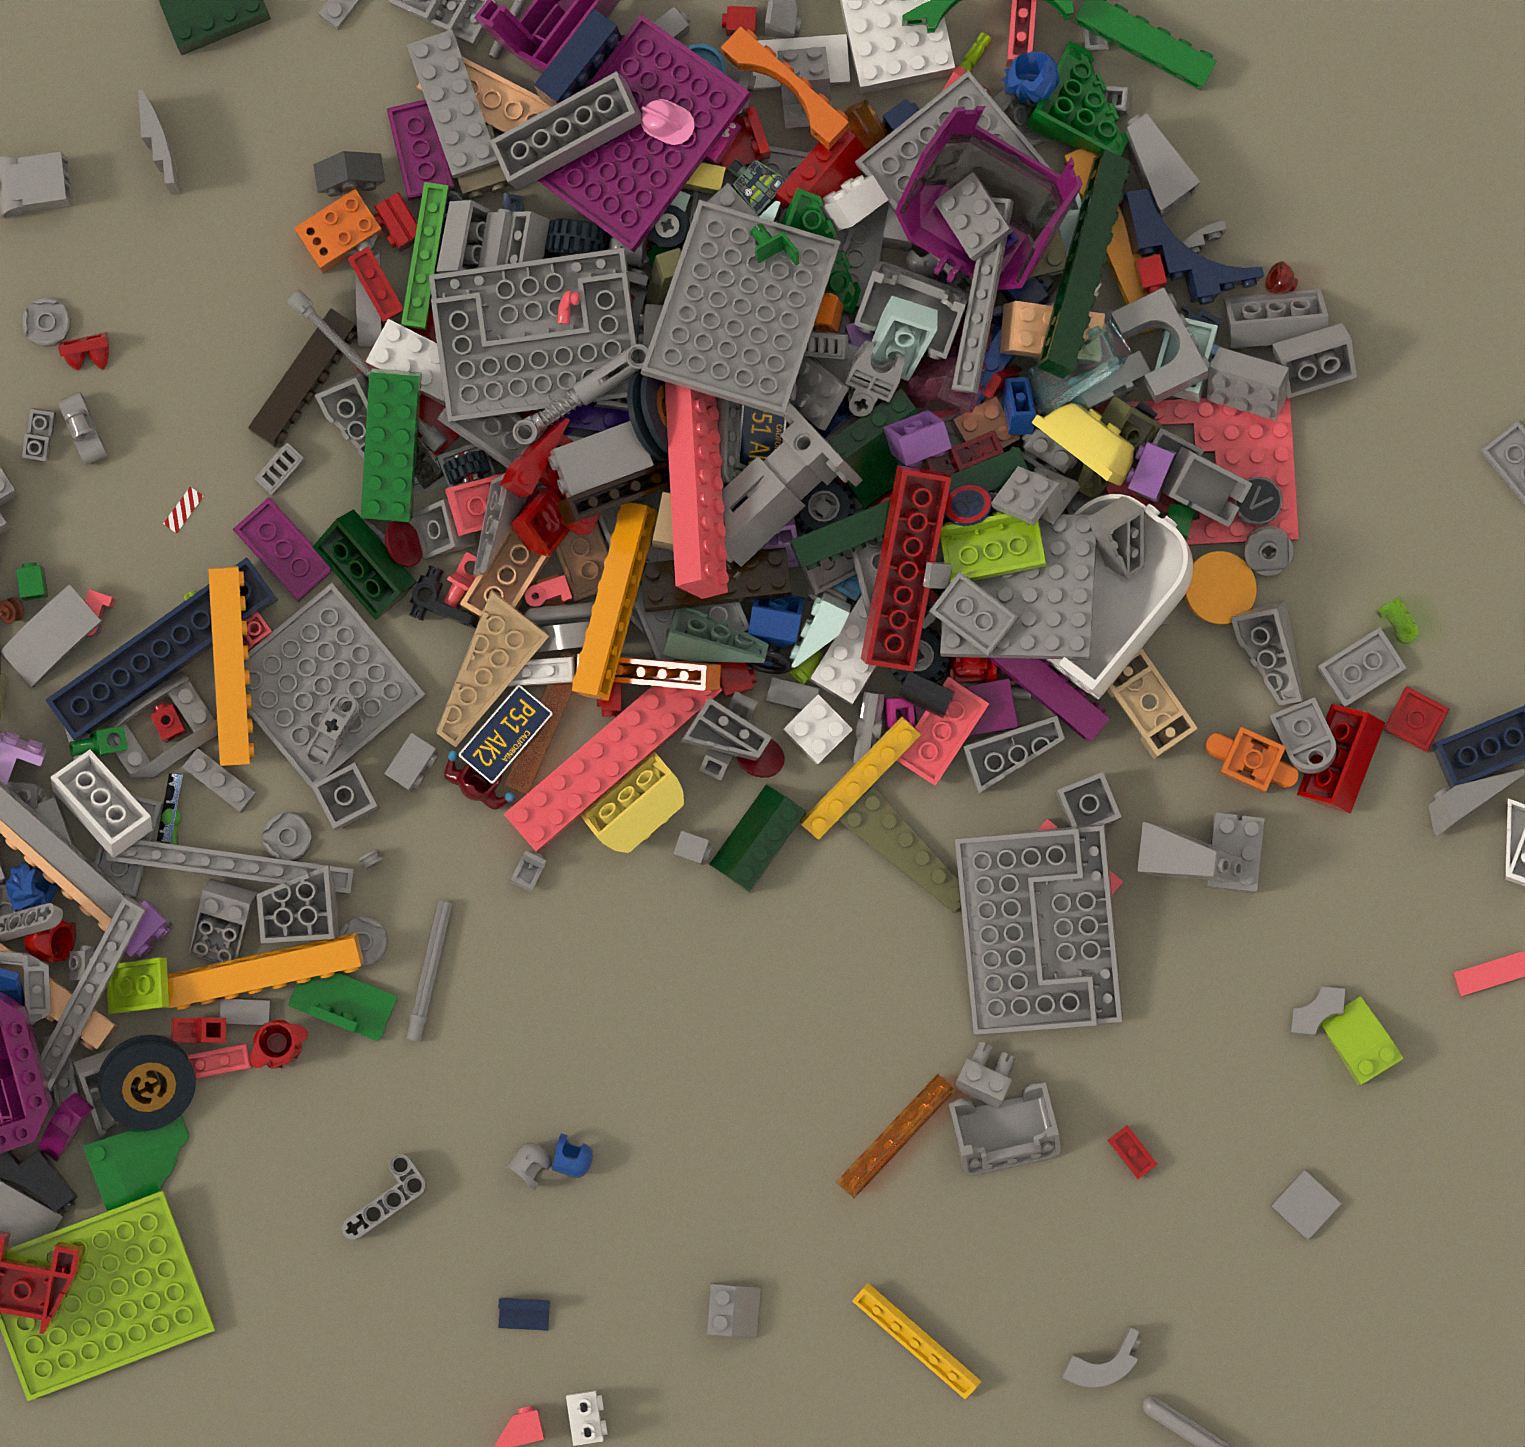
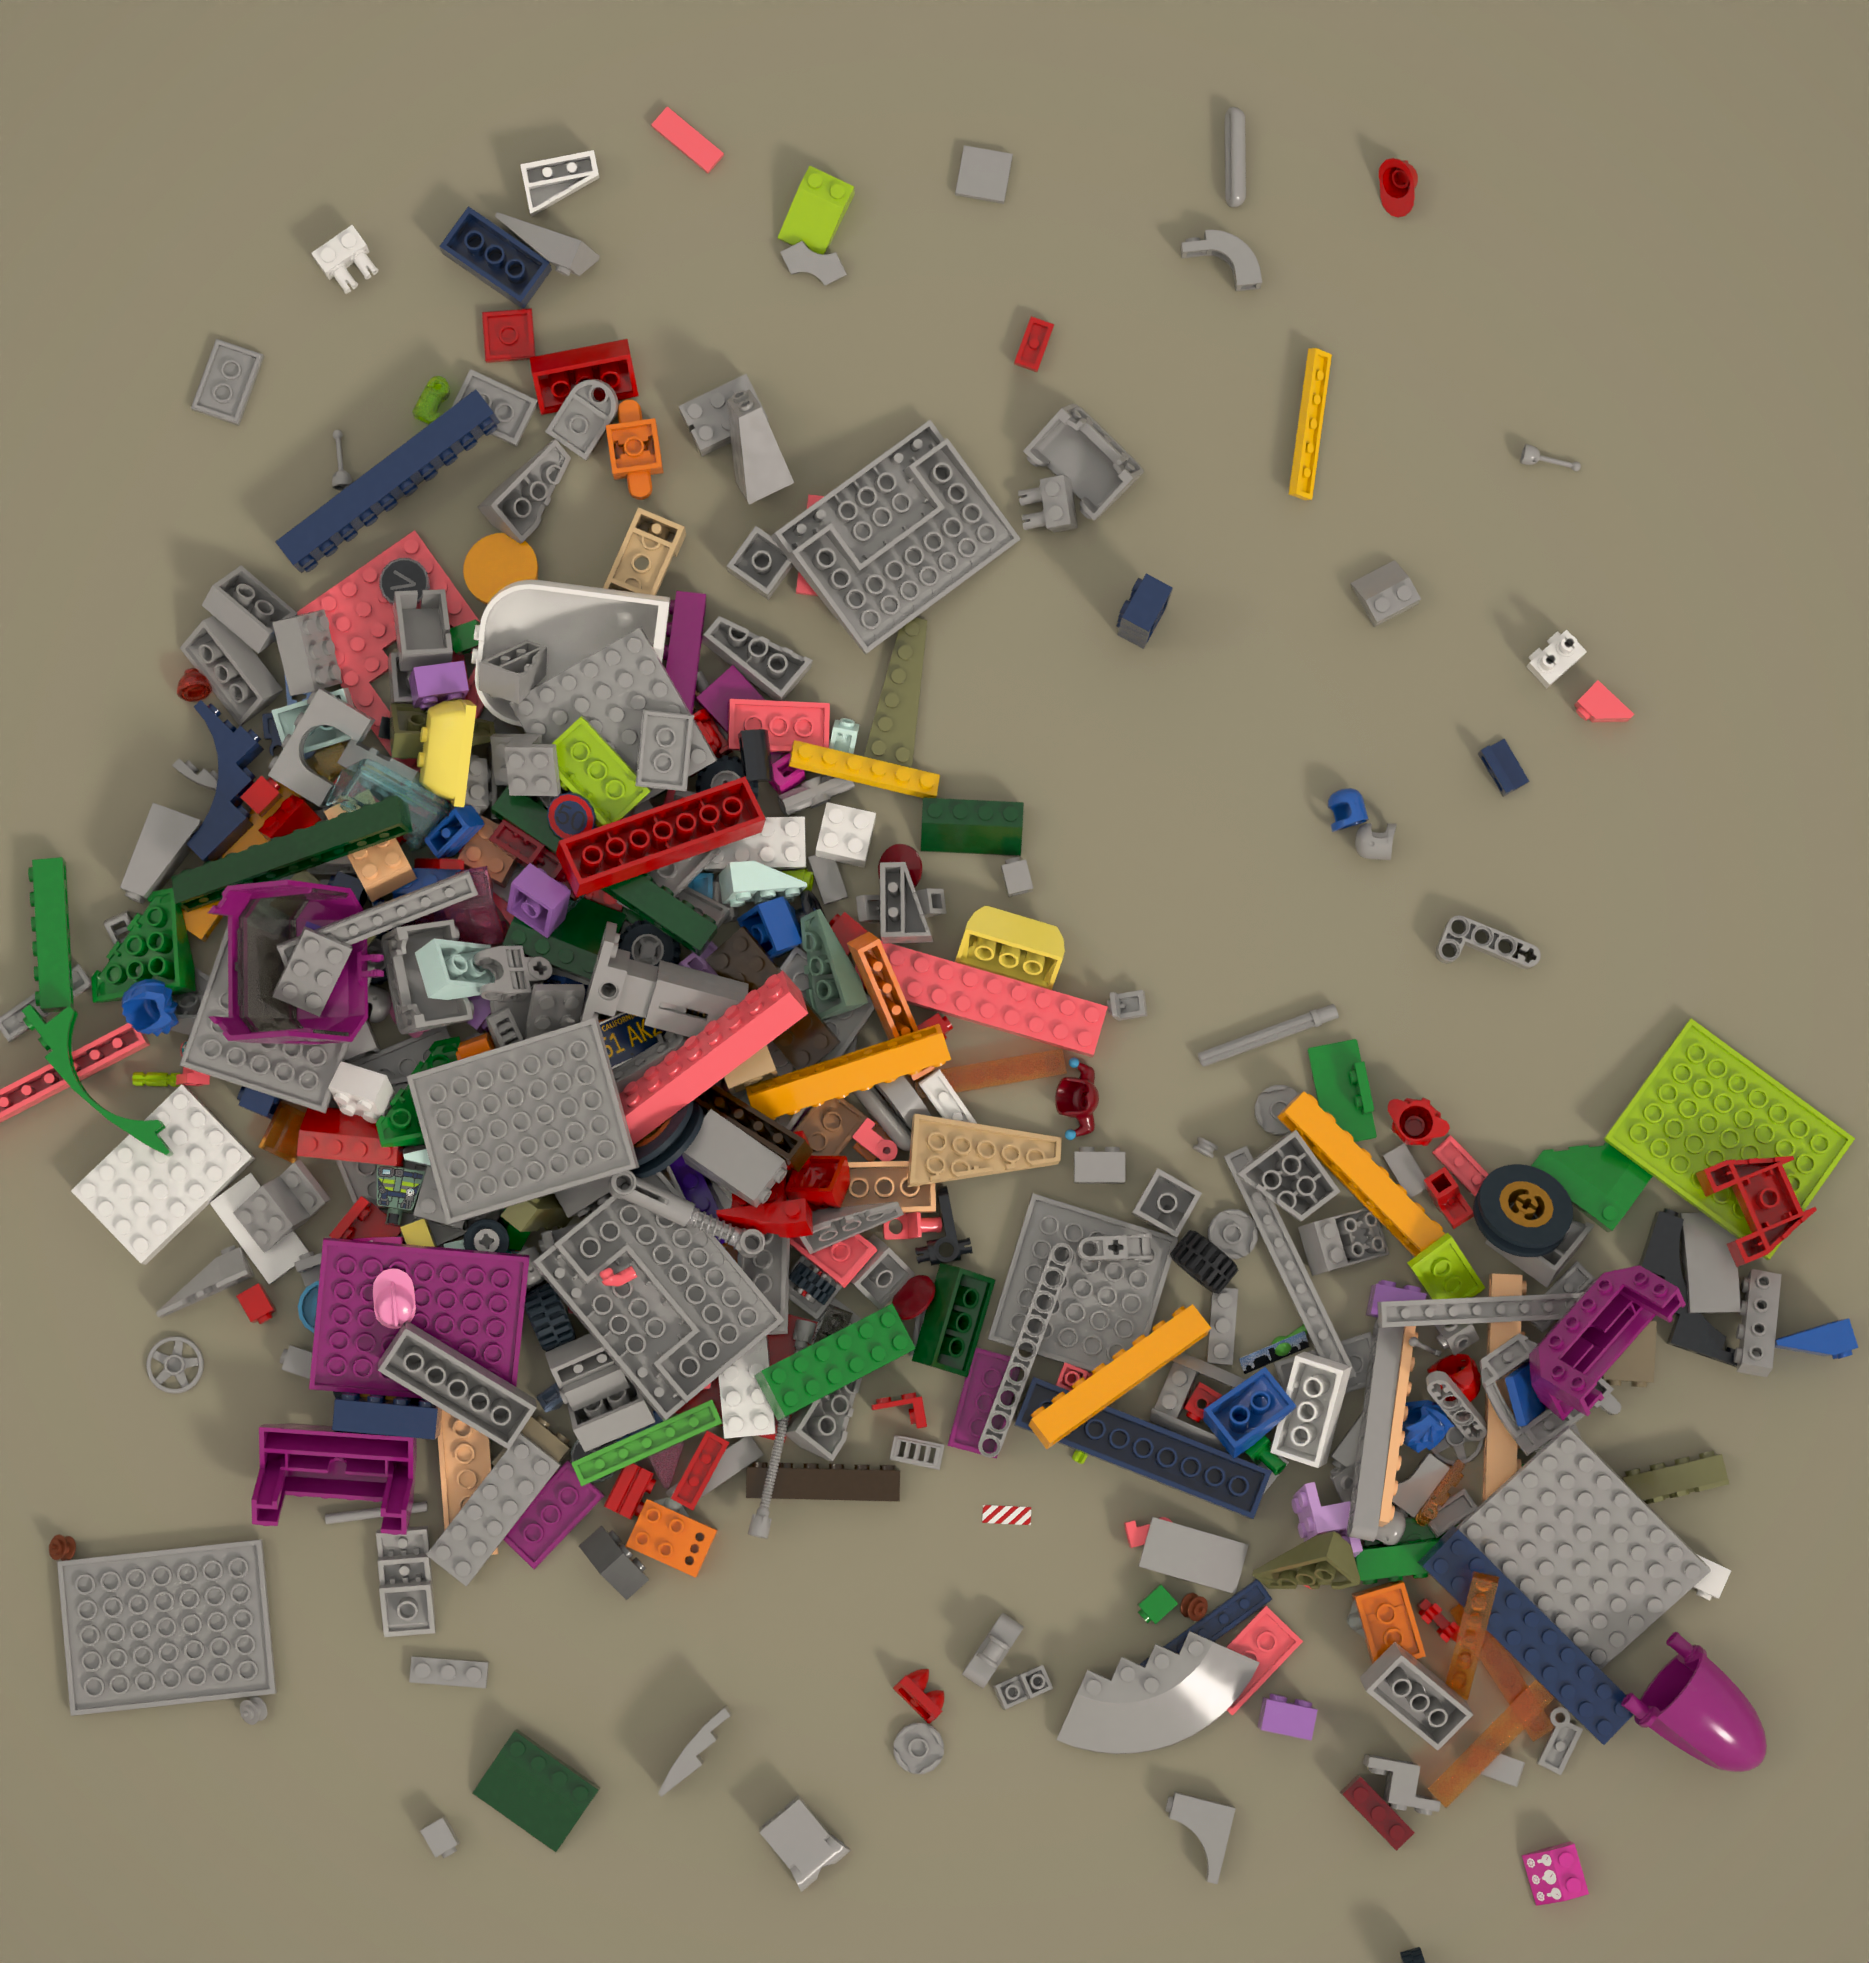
camera: 130 degrees left, 0 degrees up
(64, 1126) = (1603, 1256): magenta slope -> none
(100, 922) = (1413, 1341): none -> light grey hinge
(132, 751) = (1248, 1412): none -> blue slope
(276, 794) = (1204, 1261): none -> black tyre
(293, 596) = (1034, 1340): none -> light grey beam
(306, 486) = (917, 1414): none -> red bracket
(399, 262) = (666, 1462): none -> clear pink slope
(505, 734) = (1023, 1099): dark blue sticker -> none
(749, 55) = (286, 1269): orange arch -> none
(771, 245) = (449, 1131): green bracket -> none
(842, 1091) = (1144, 610): none -> dark blue brick
(896, 1136) = (1149, 549): clear orange plate -> none
(900, 781) = (844, 735): none -> light aqua bracket
(937, 575) = (650, 803): light grey tile -> none
(1116, 284) = (291, 815): none -> red brick
(1148, 347) = (327, 761): none -> clear yellow brick
(1268, 536) = (436, 559): light grey plate -> none
(1350, 539) = (388, 482): none -> dark blue brick
(1379, 506) = (341, 478): none -> light grey hinge

